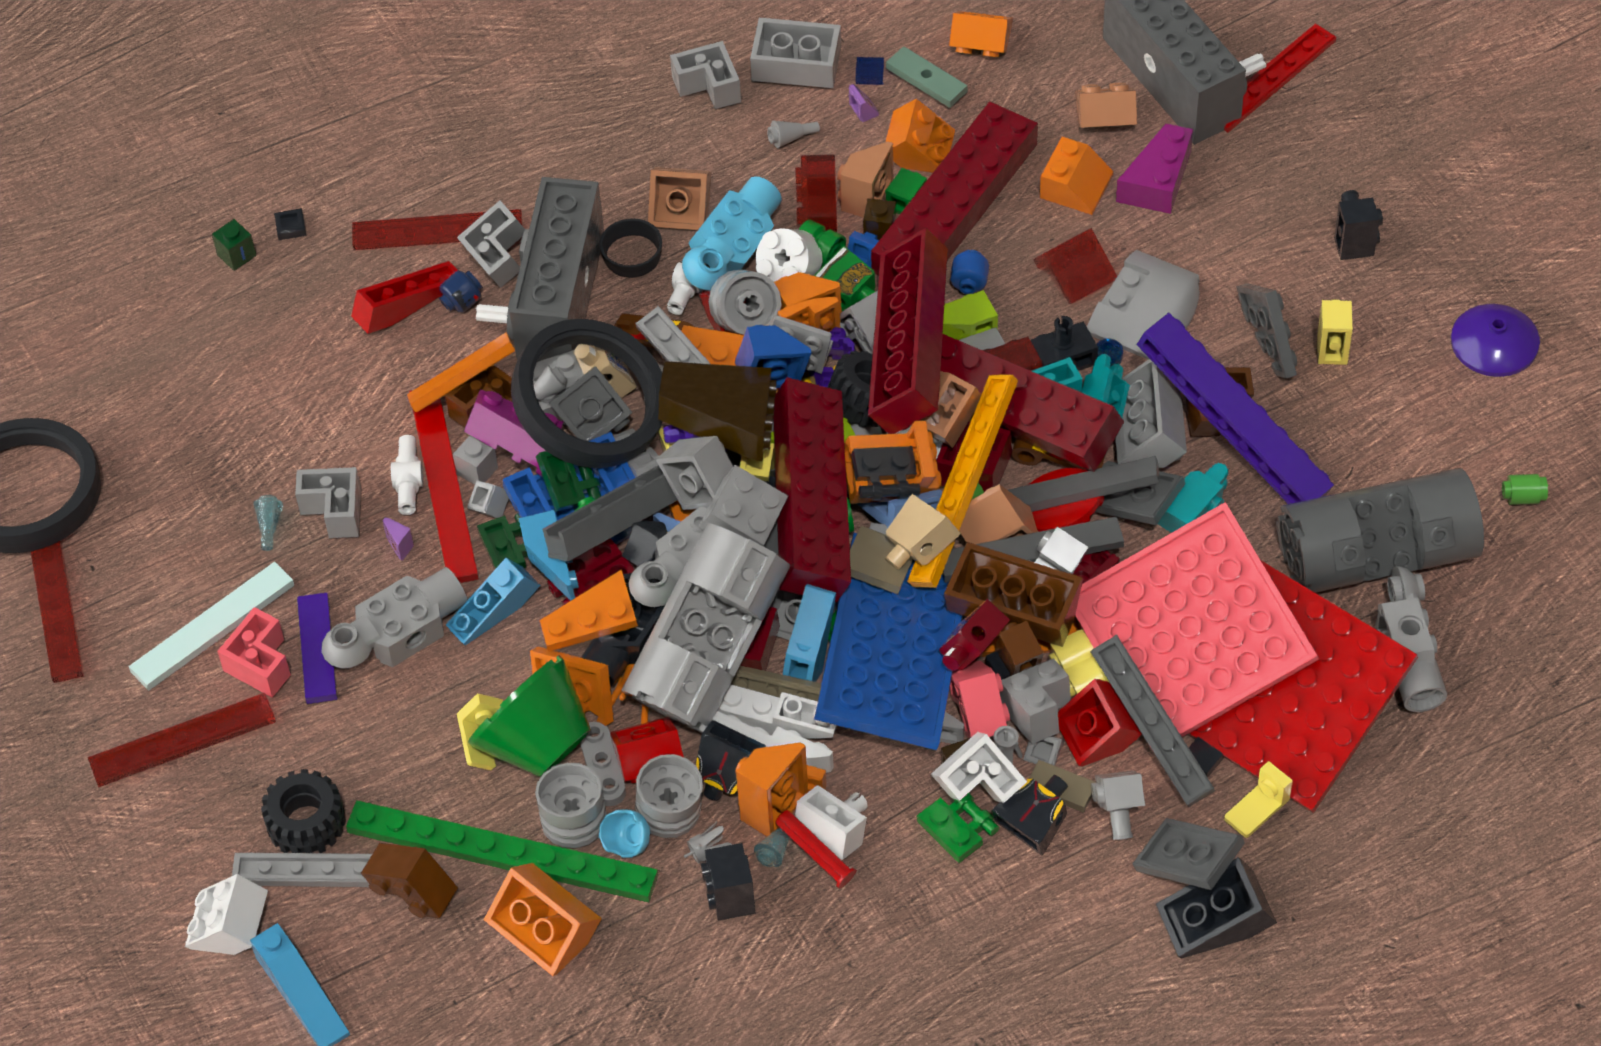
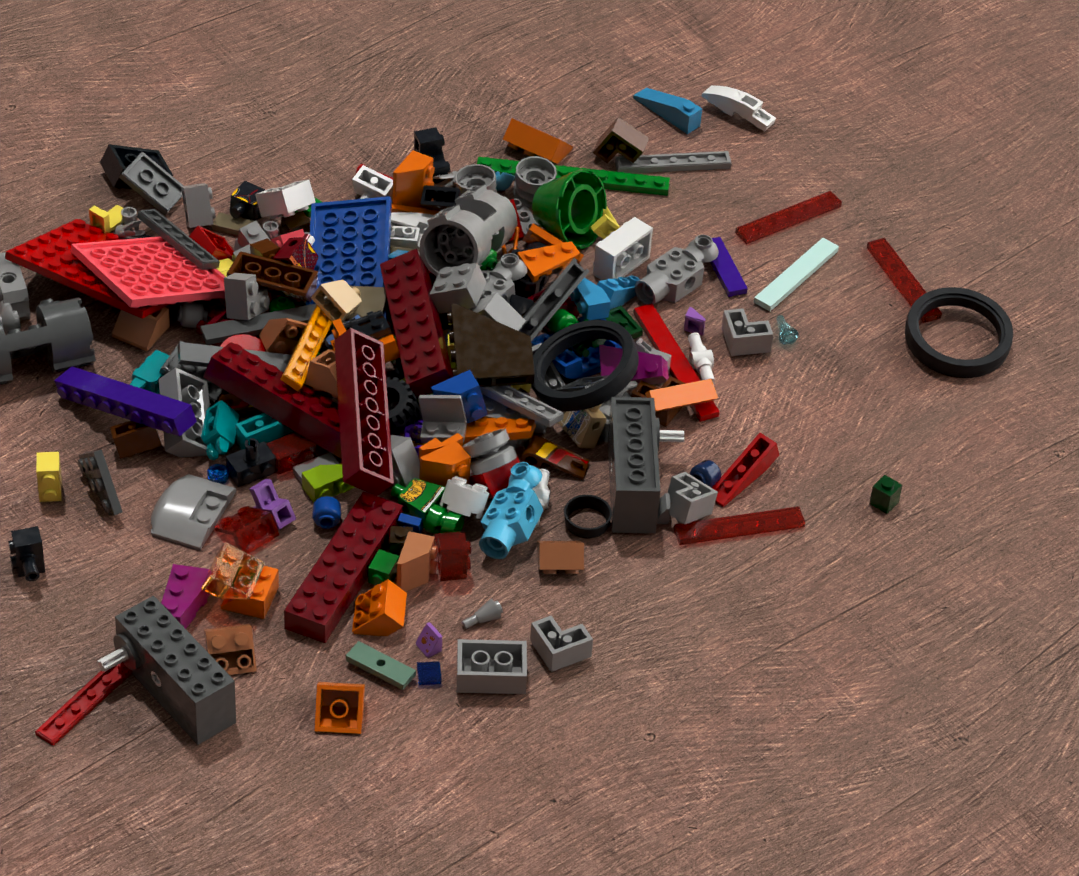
camera: 165 degrees right, 10 degrees down
(181, 969) = (737, 101): none -> white slope
(226, 916) = (722, 130): white slope -> none
(252, 653) = (760, 246): coral brick -> none
(290, 224) = (852, 523): black tile -> none
(298, 792) = (696, 175): black tyre -> none
(468, 653) = (623, 250): none -> white brick
(1039, 281) = (268, 500): none -> medium lavender brick
(1099, 159) = (233, 574): none -> clear orange slope
(1227, 786) = (128, 215): none -> light grey piece
(1235, 767) = (124, 232): none -> light grey piece

